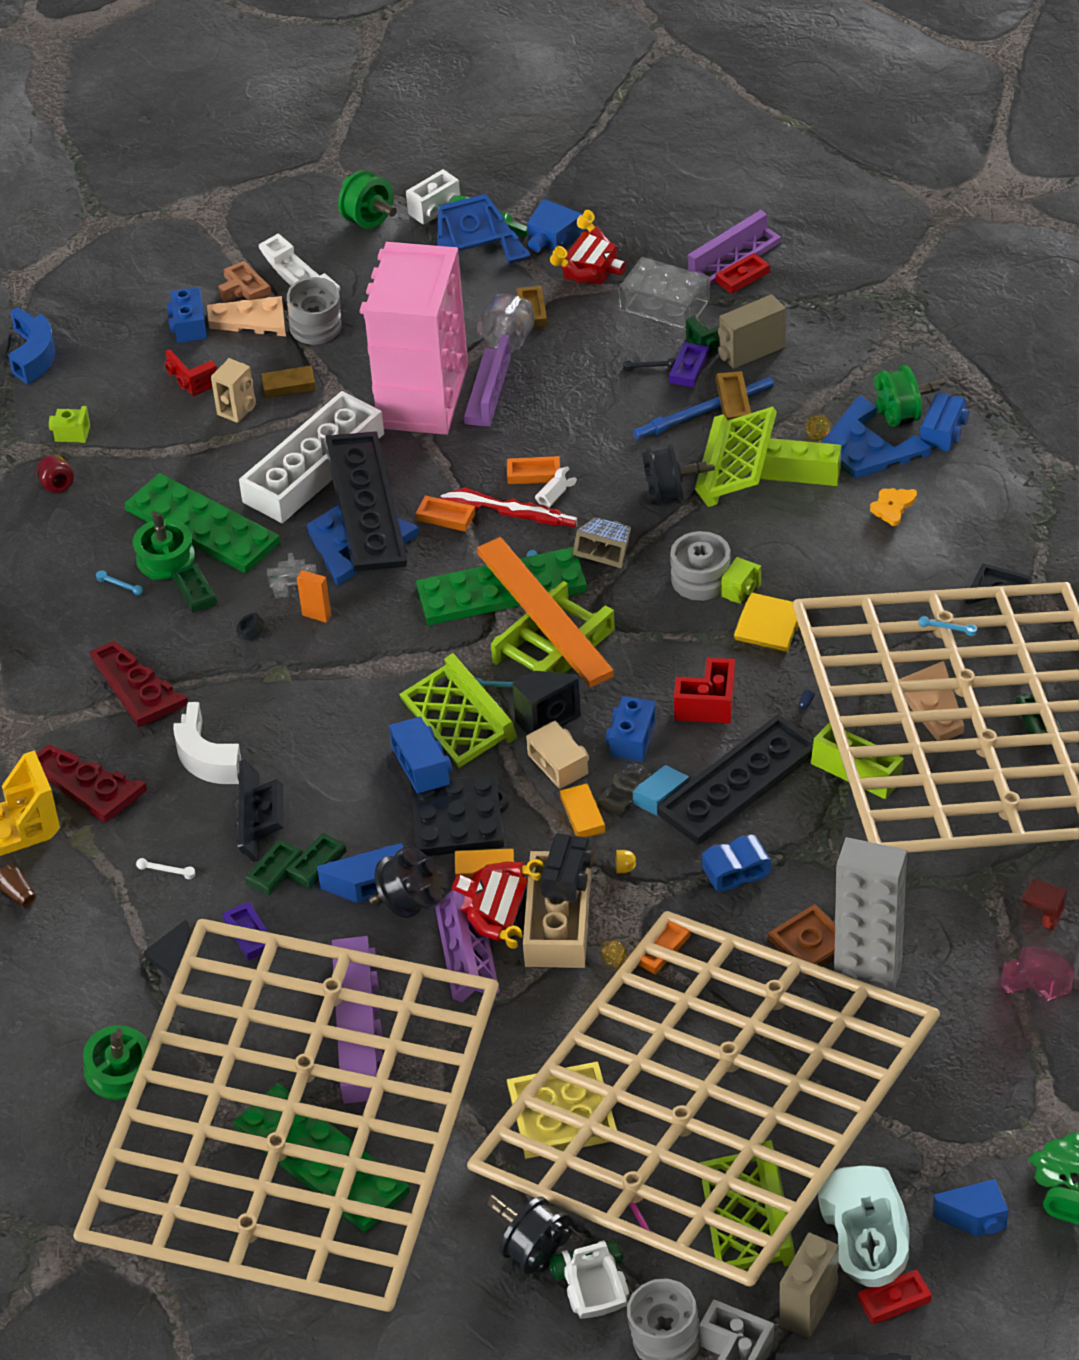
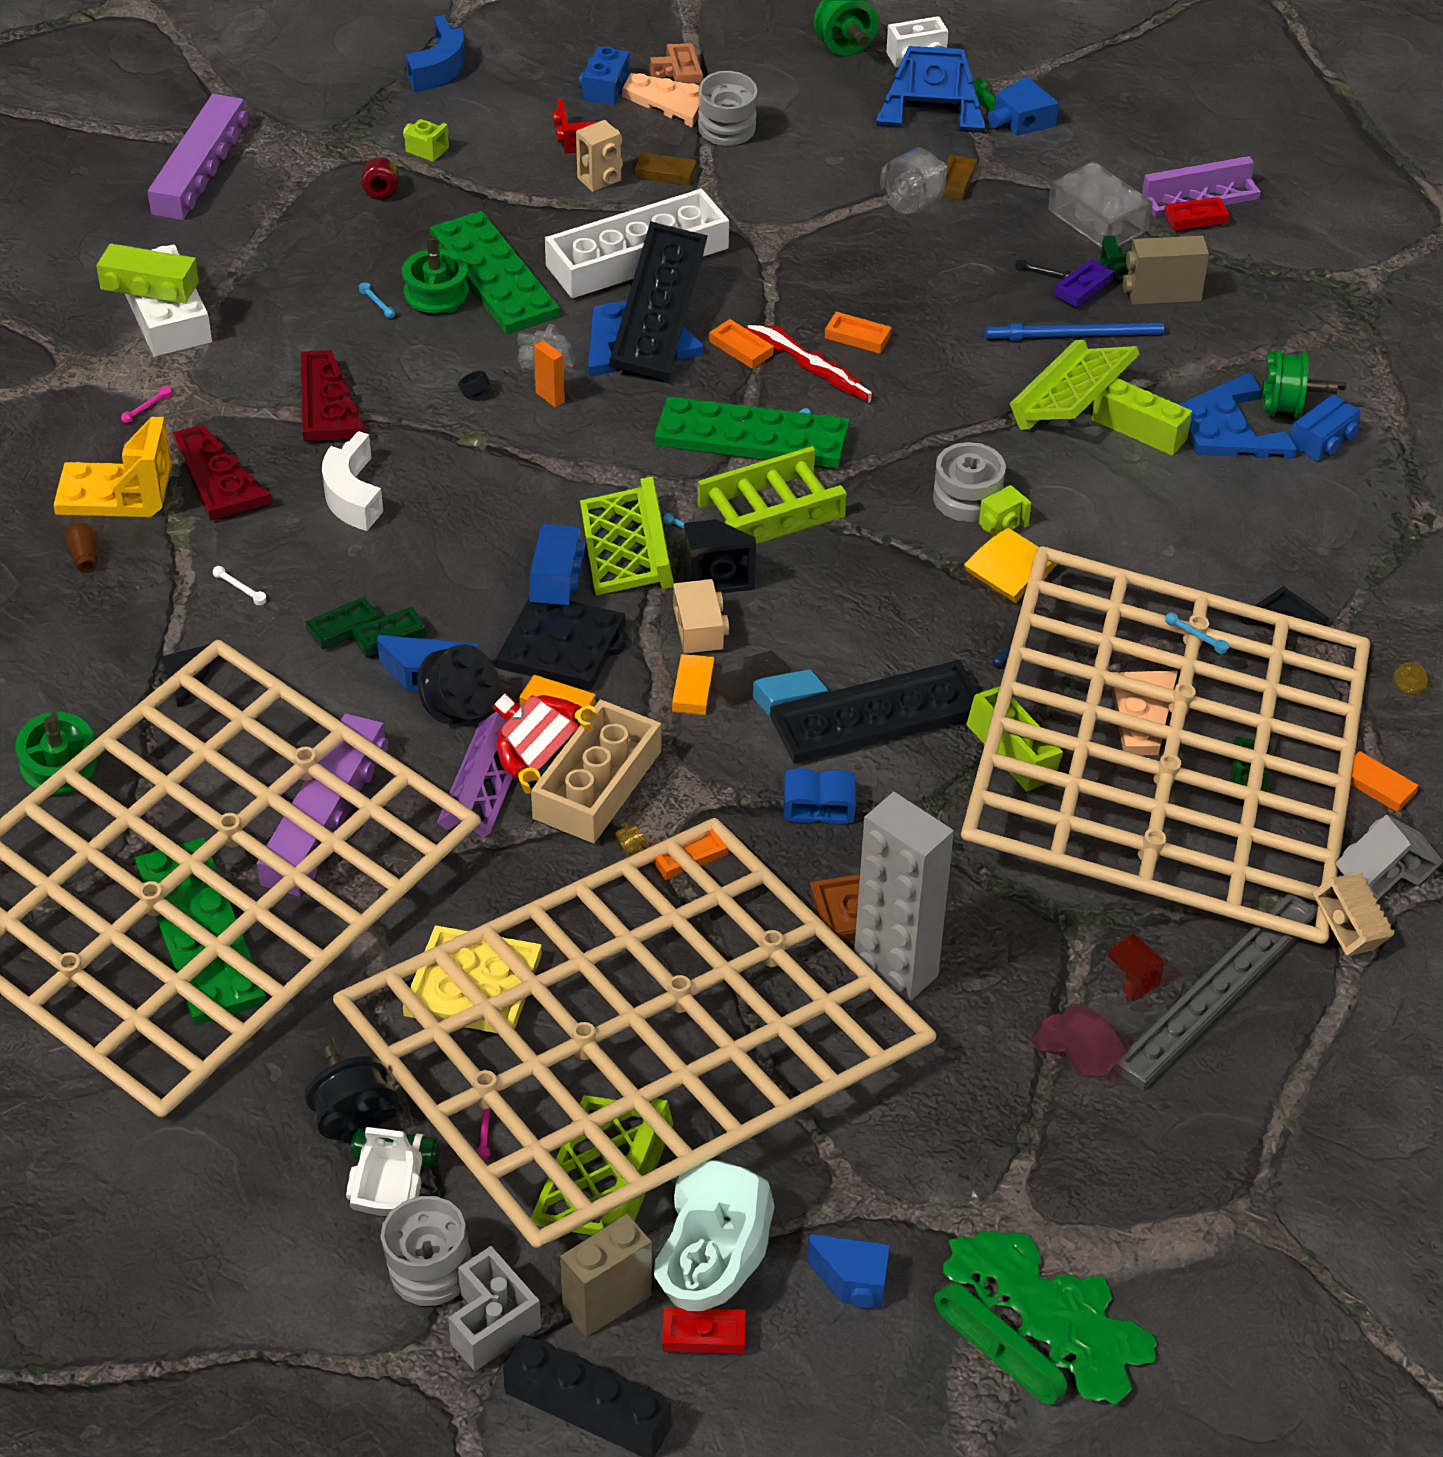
camera: 20 degrees right, 0 degrees up
(194, 588) = (443, 328): dark green plate -> none
(246, 917) = (279, 663): dark purple plate -> none
(258, 809) = (361, 560): black bracket -> none
(285, 262) = (733, 57): white slope -> none
(416, 336) = (794, 154): bright pink container -> none
(488, 384) = (864, 235): medium lavender fence -> none
(545, 612) = (771, 470): orange tile -> none
(554, 488) = (866, 356): white bar -> none
(566, 867) = (620, 728): black brick -> none
(590, 257) = (1044, 148): red torso -> none
(602, 541) = (880, 422): dark tan torso -> none
(624, 861) = (702, 750): yellow hinge -> none
(631, 728) = (795, 619): blue brick -> none
(665, 474) = (985, 378): black wheel -> none
(709, 697) = (895, 616): red brick -> none
(732, 394) = (1110, 324): pearl gold tile -> none
(818, 427) = (1184, 388): clear yellow plate -> none
(892, 504) = (1218, 492): light orange animal -> none

